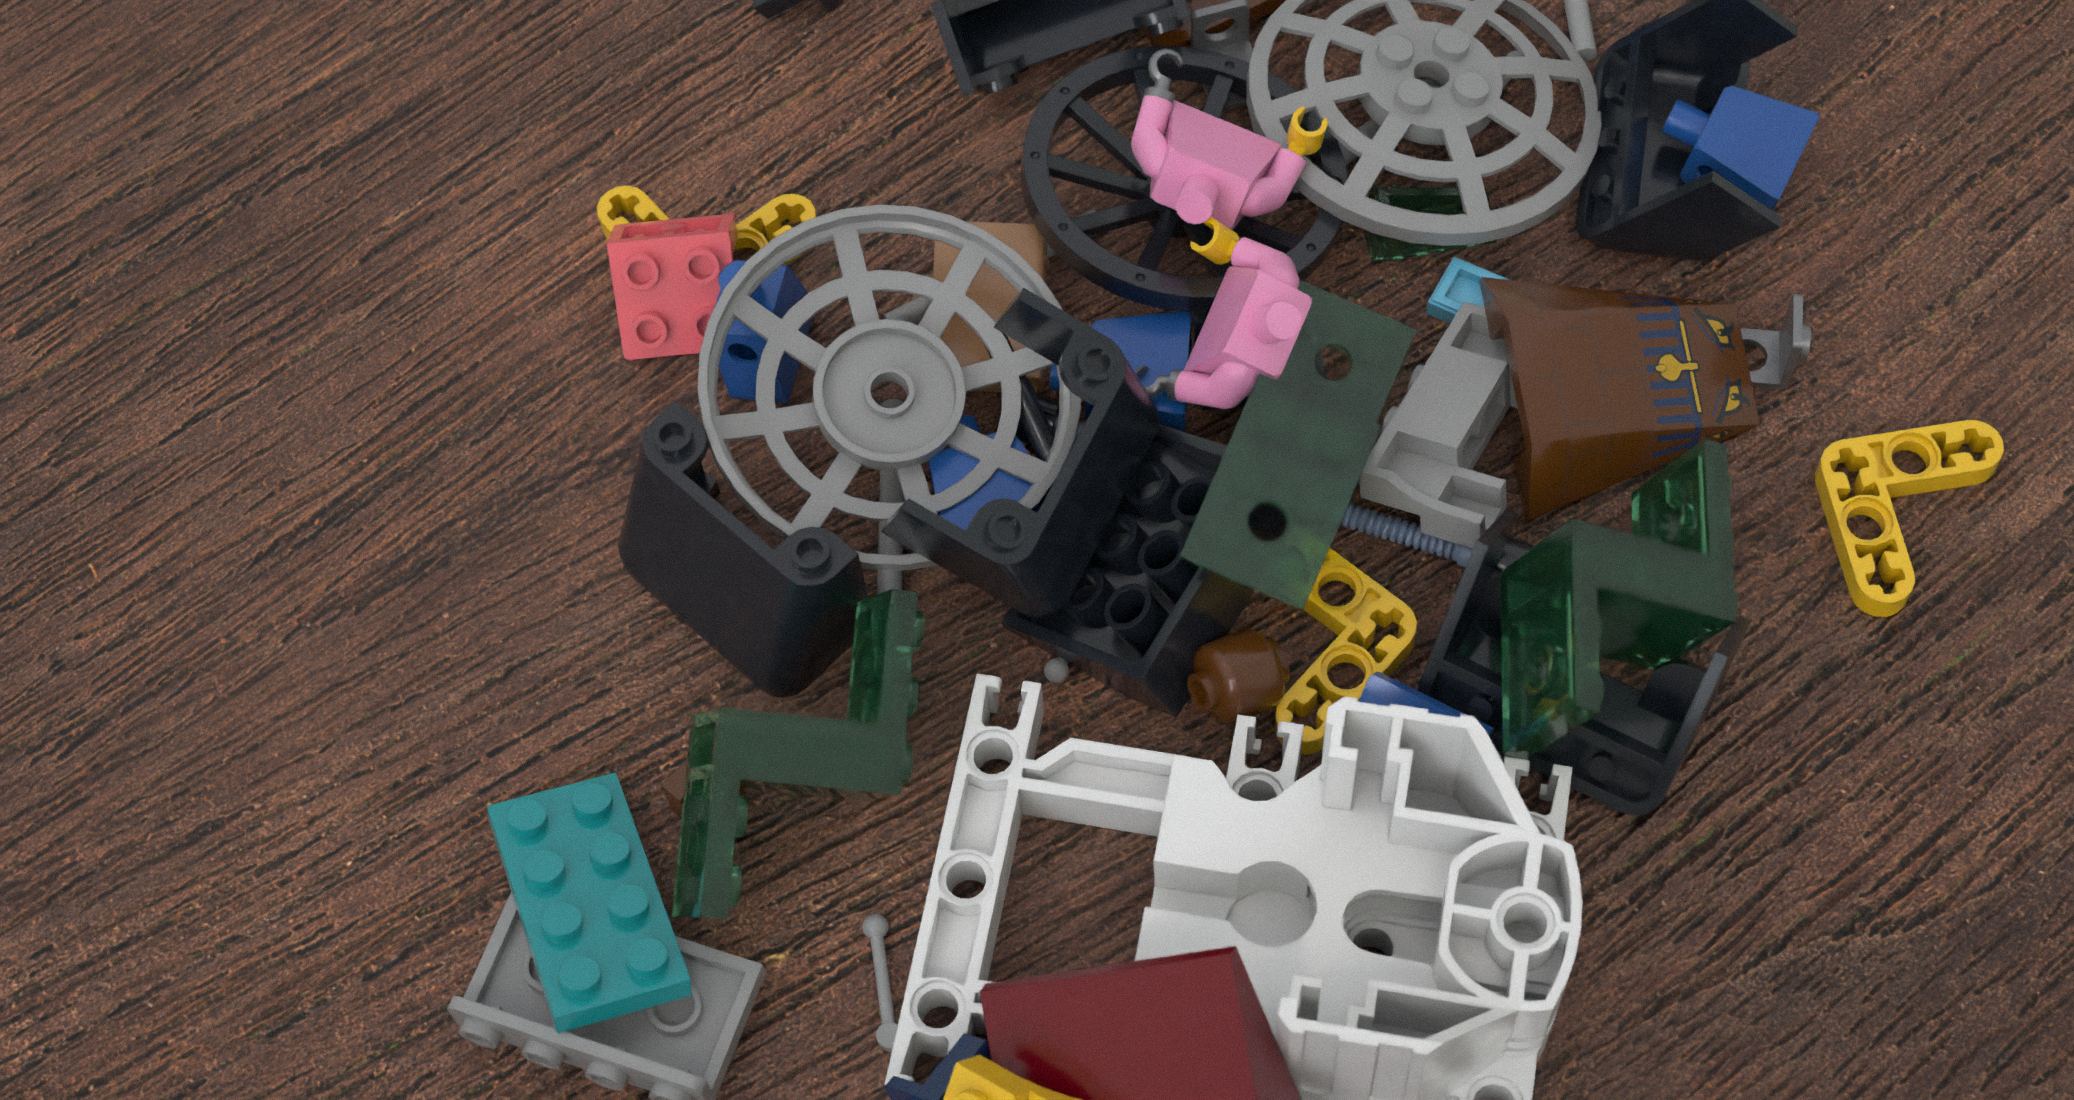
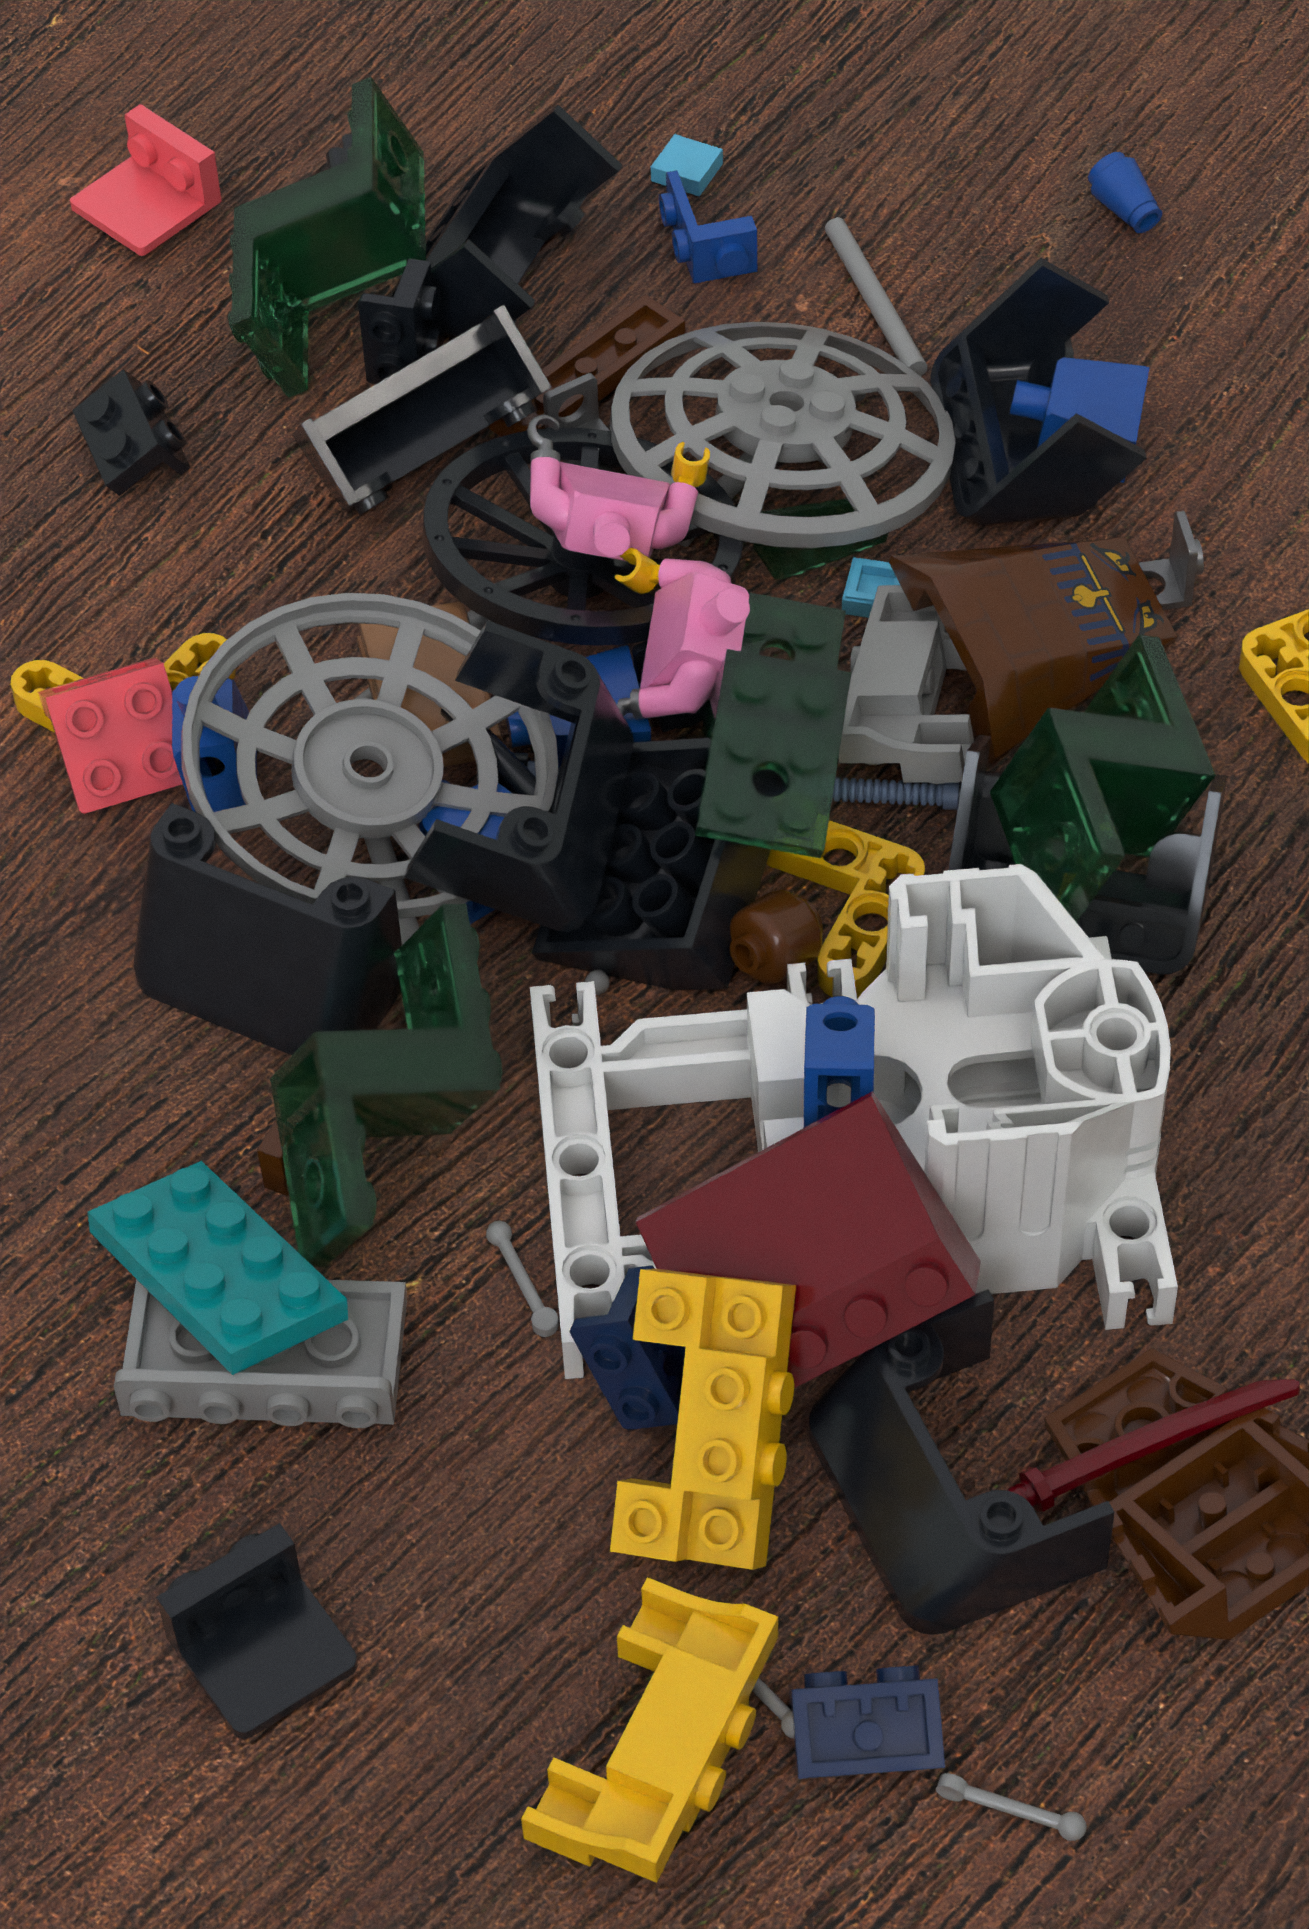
camera: 20 degrees left, 10 degrees down
(1226, 881) = (837, 1051): none -> blue torso

